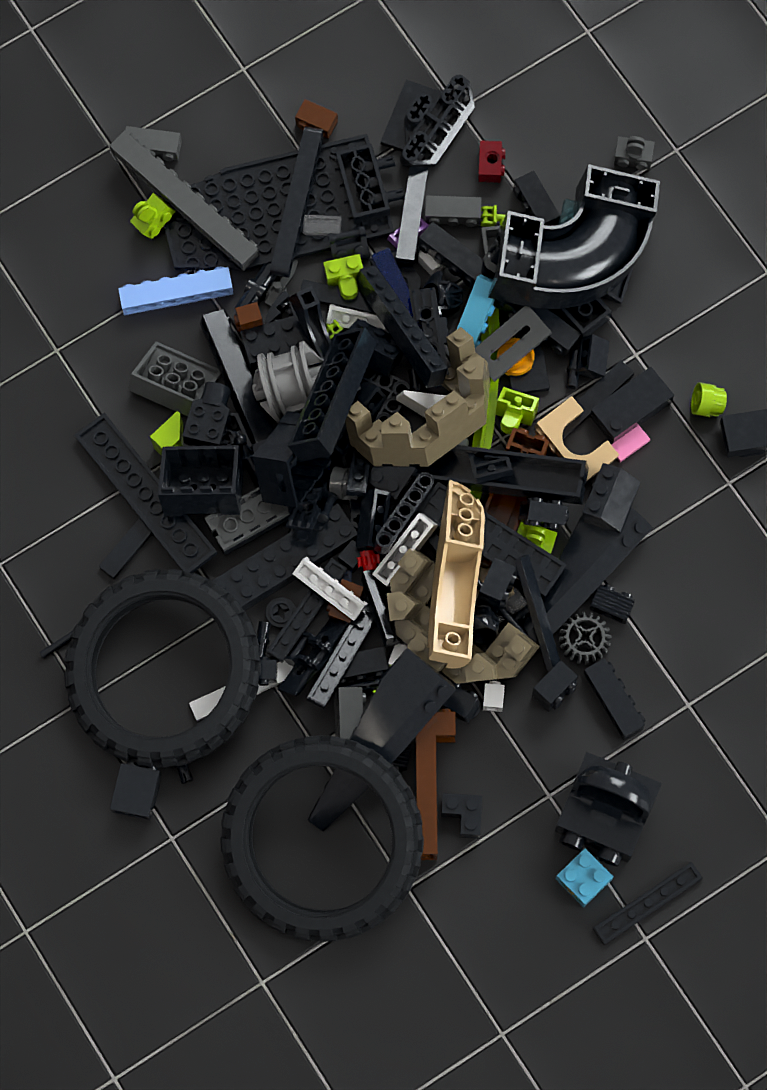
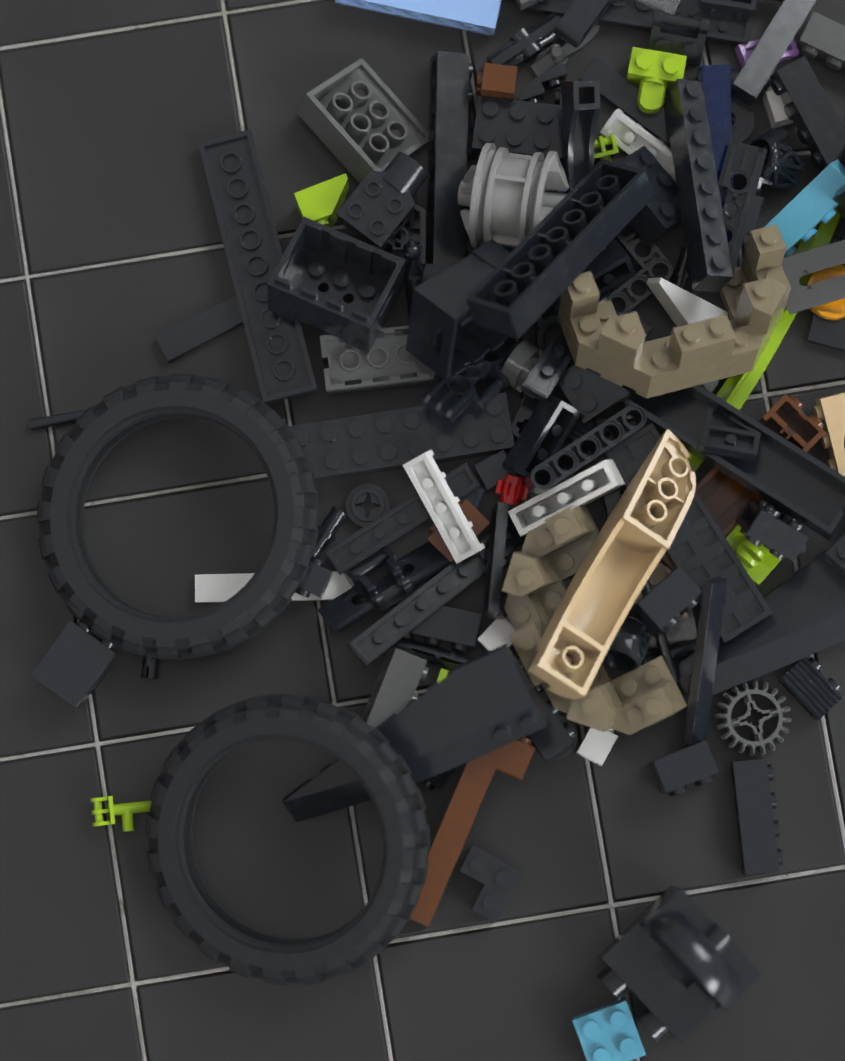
camera: 20 degrees right, 10 degrees up
(200, 874) = (125, 809): none -> lime arm
(515, 409) = (801, 365): lime brick -> none

